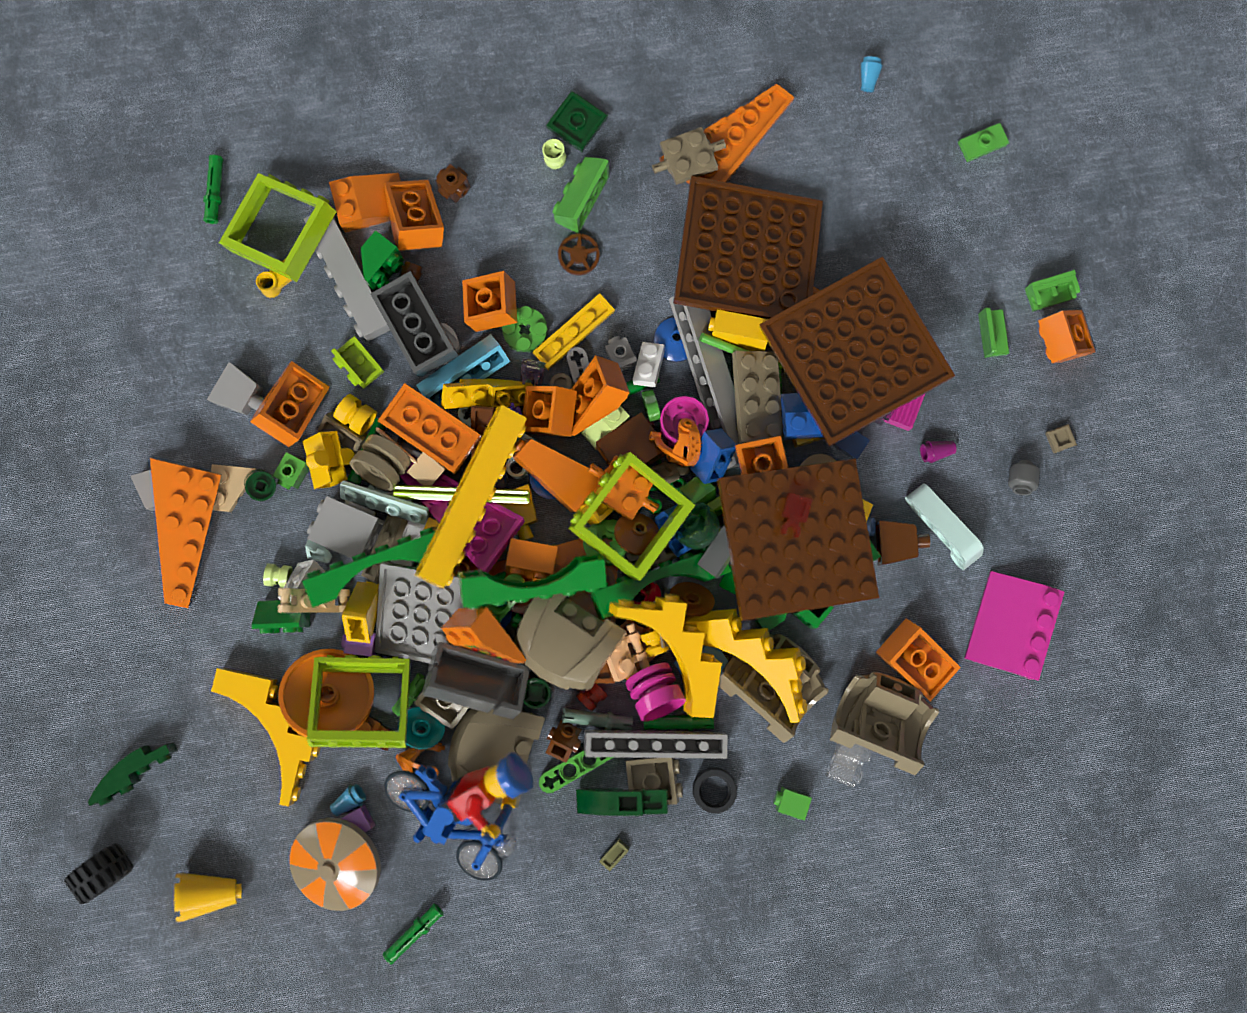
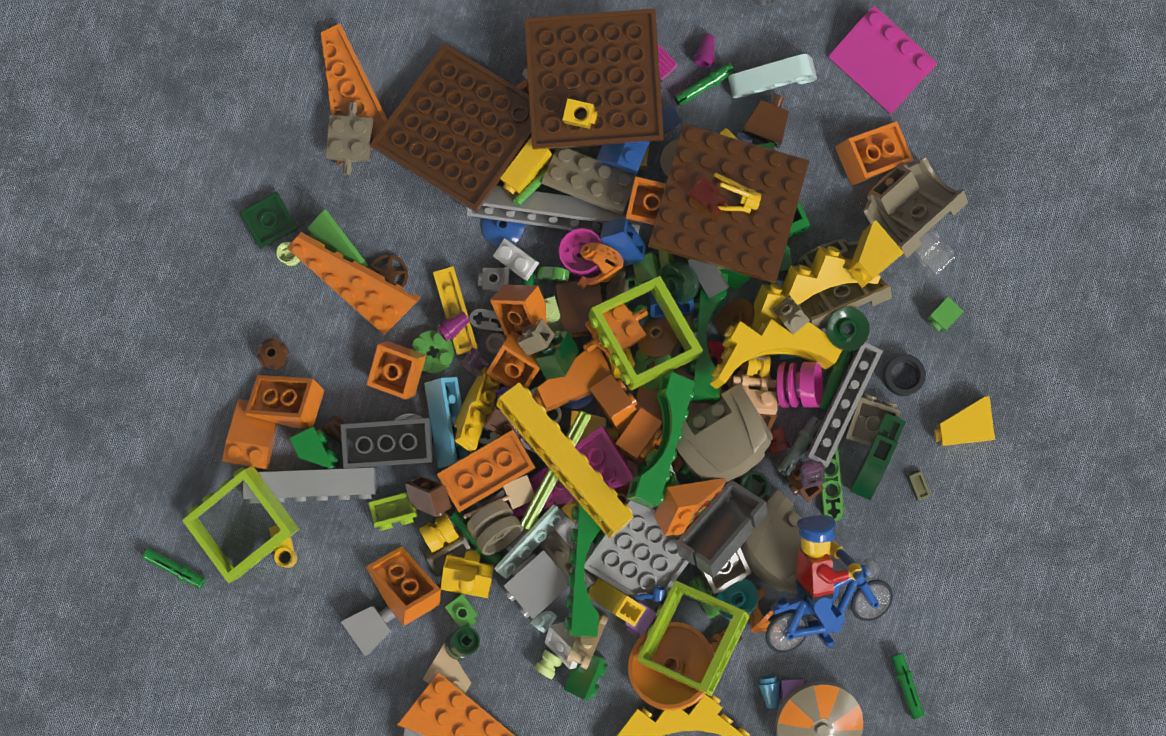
camera: 65 degrees left, 0 degrees up
(382, 386) = (428, 495): none -> reddish brown brick
(388, 648) = (656, 595): none -> blue hand
(552, 226) = (358, 285): none -> orange wing
(552, 520) = (614, 402): none -> orange slope
(556, 334) = (452, 326): none -> magenta cone
(571, 744) = (812, 474): none -> clear purple tile
(572, 443) = (558, 356): none -> dark green brick
(578, 414) = (535, 337): none -> dark tan brick
(694, 875) = (968, 425): none -> yellow slope
(718, 651) = (791, 314): none -> dark tan brick
(733, 725) = (858, 329): none -> dark green dish
(812, 555) = (749, 197): none -> yellow plant
(817, 704) = (873, 254): none -> yellow slope
(818, 341) = (572, 107): none -> yellow brick
(914, 469) = (708, 81): none -> green pin

